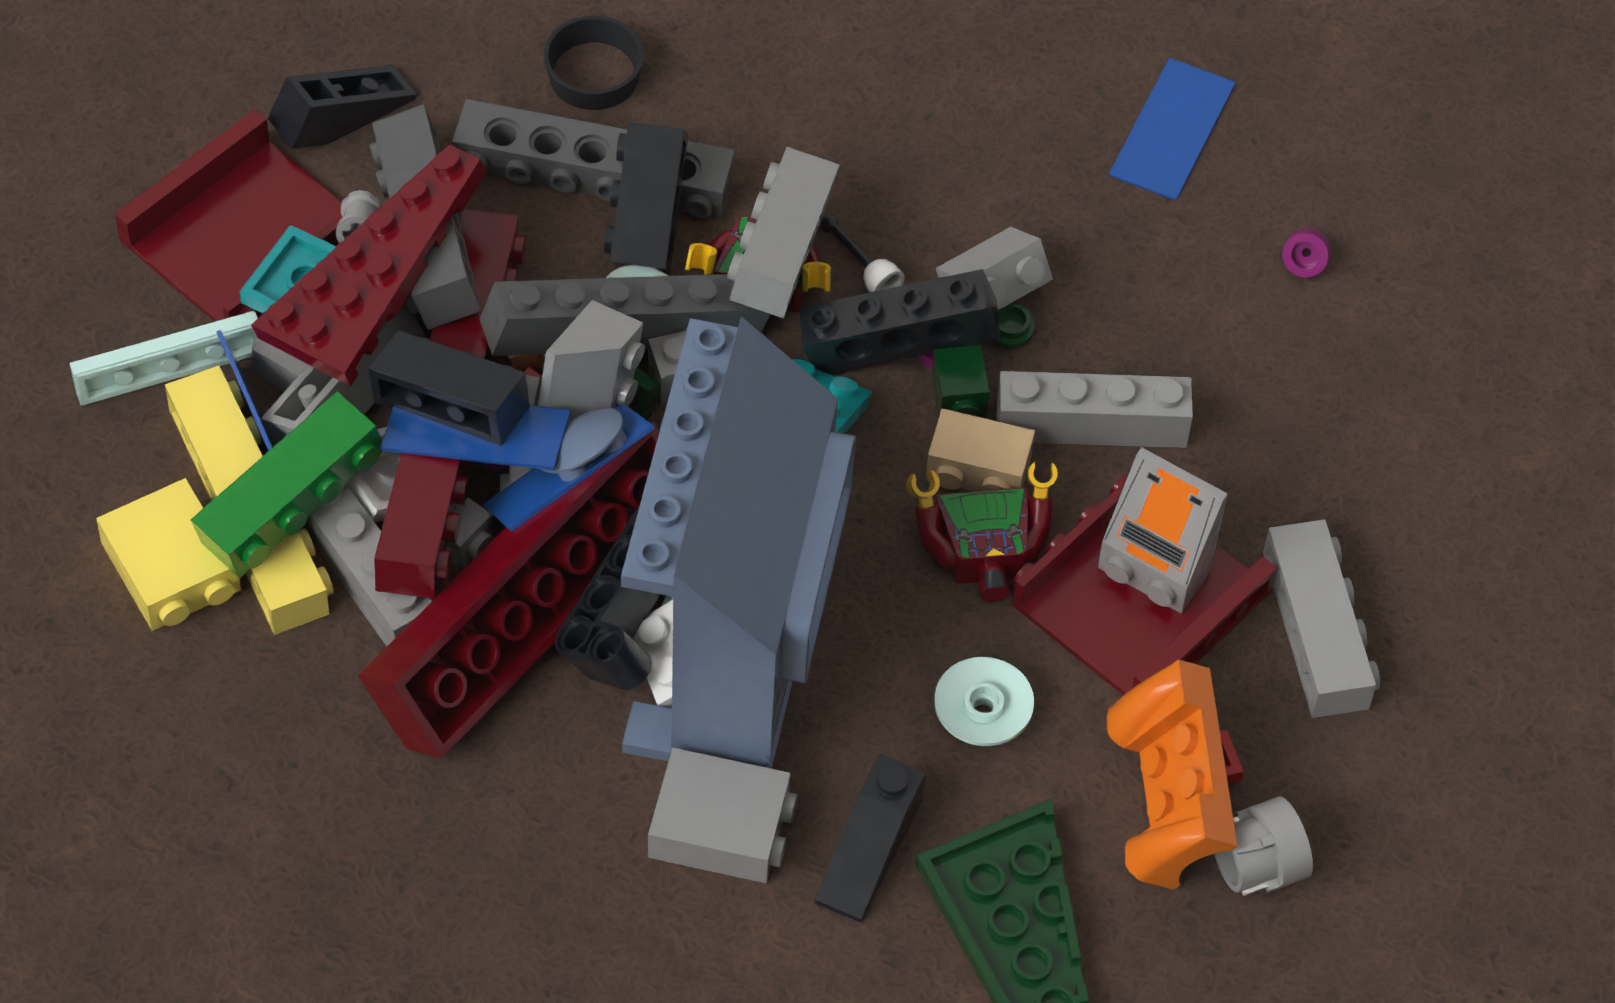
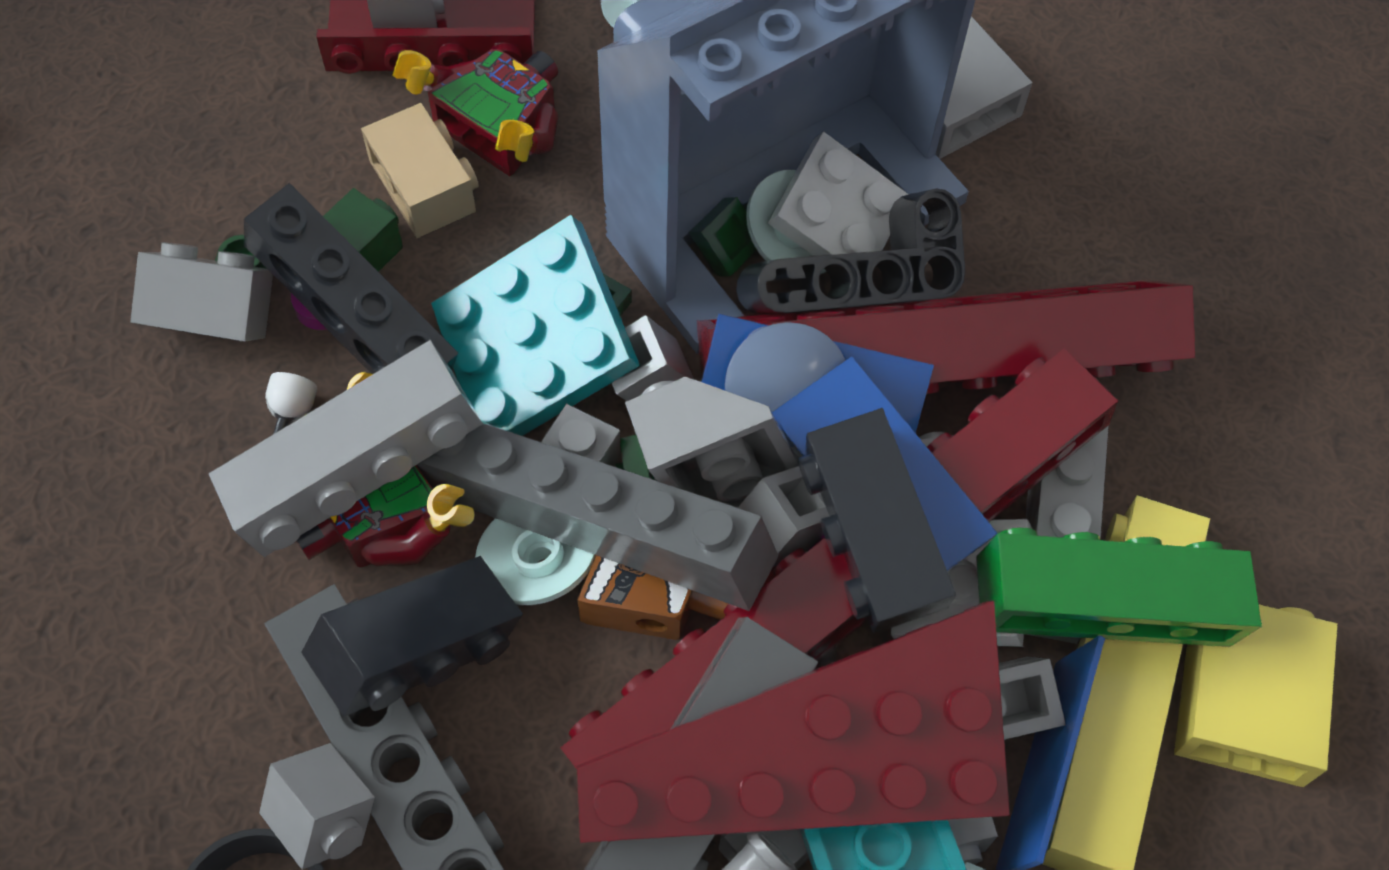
camera: 135 degrees left, 5 degrees up
(606, 101) = (316, 805): none -> light grey brick
(1097, 408) = (283, 122): light grey brick -> none

